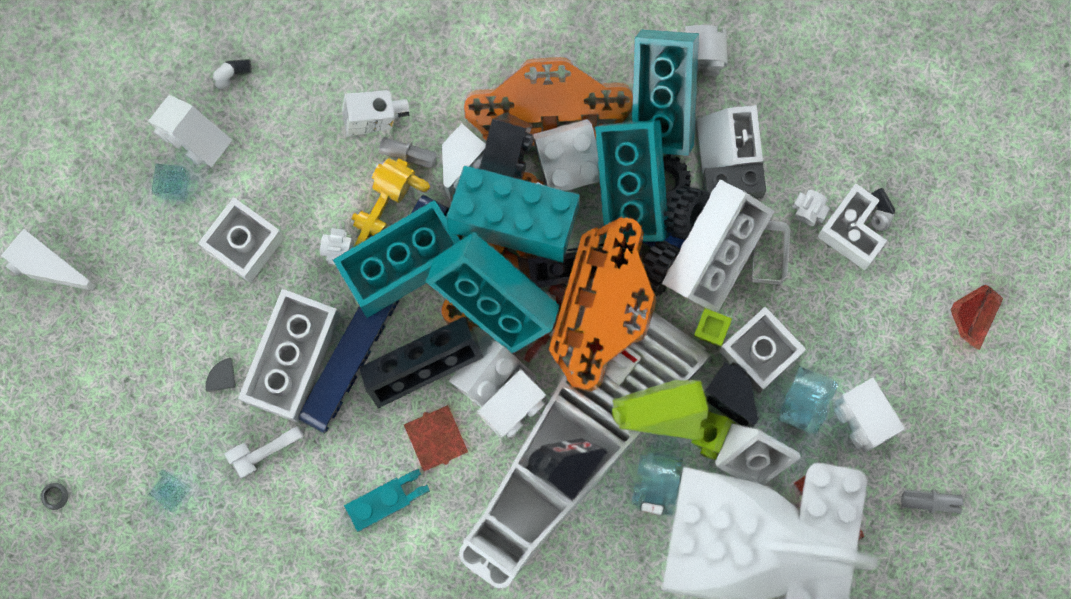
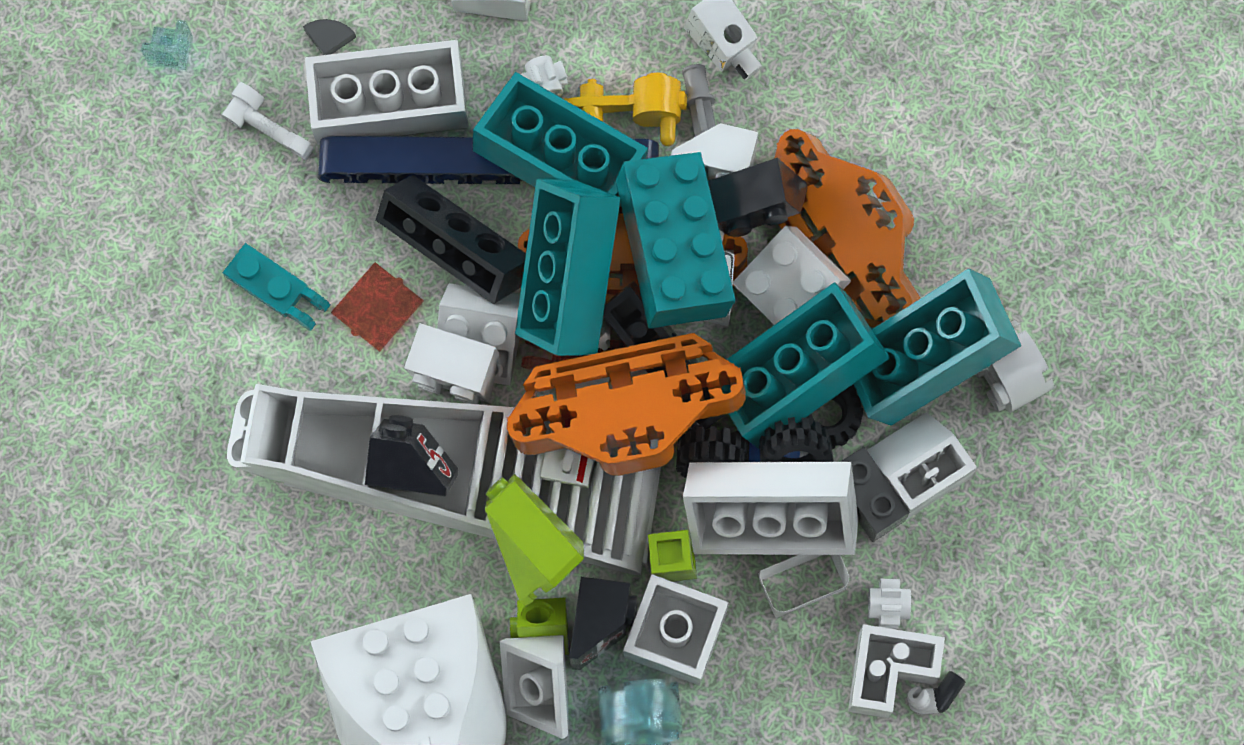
camera: 60 degrees right, 5 degrees down
(658, 483) = (445, 577): clear light blue brick -> none

